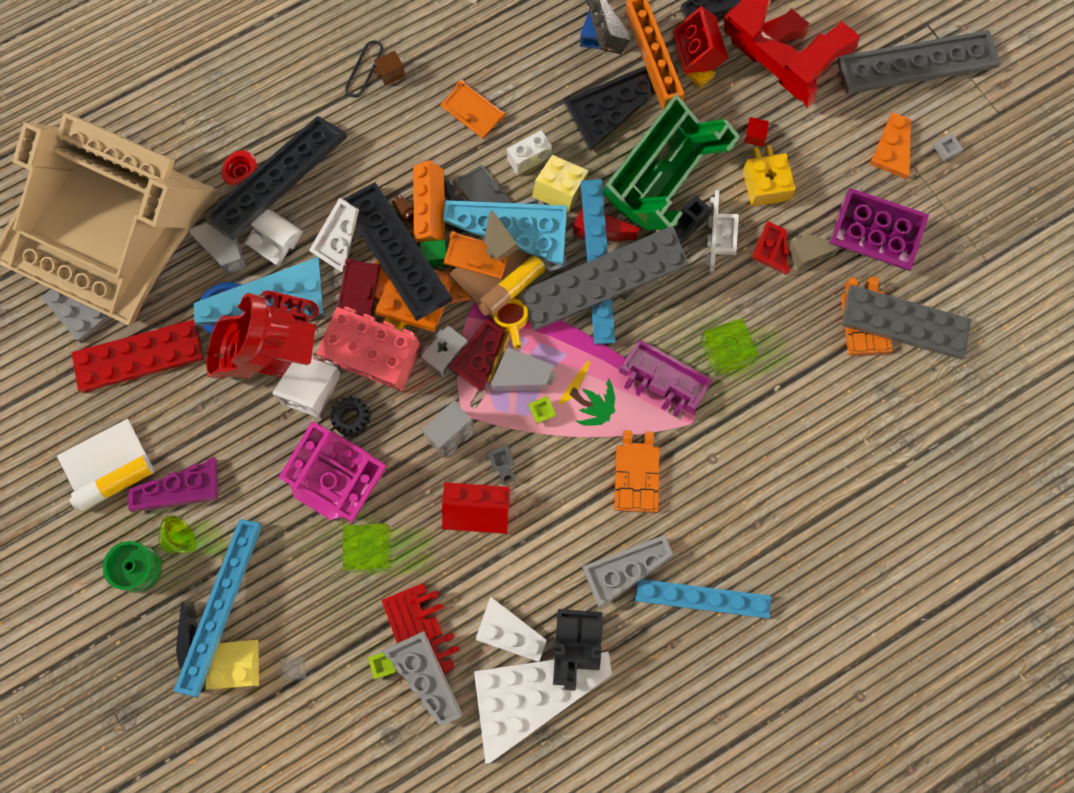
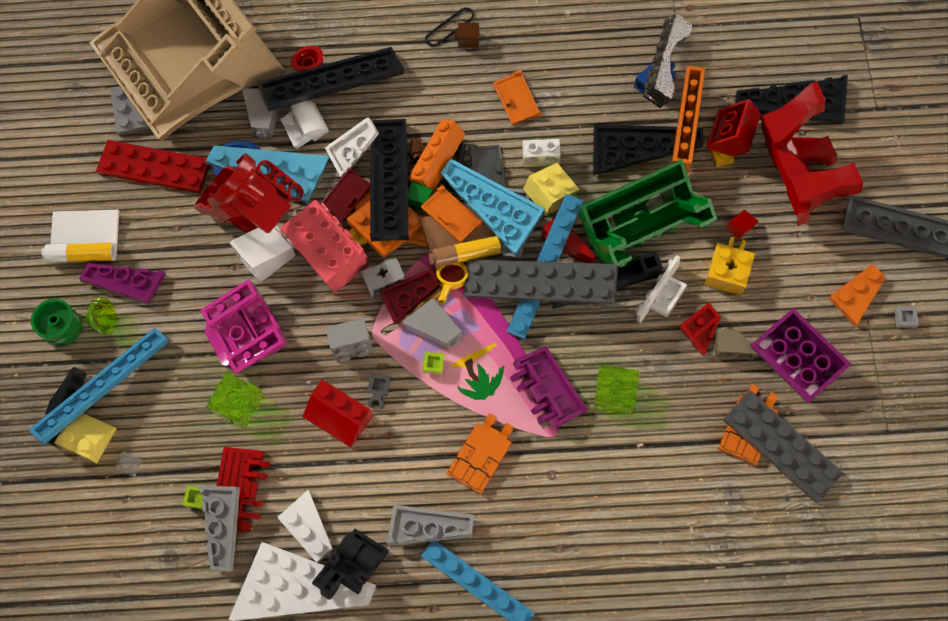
camera: 30 degrees right, 5 degrees down
(344, 405) = (287, 301): black tyre -> none
(498, 239) = (473, 208): dark tan slope -> none

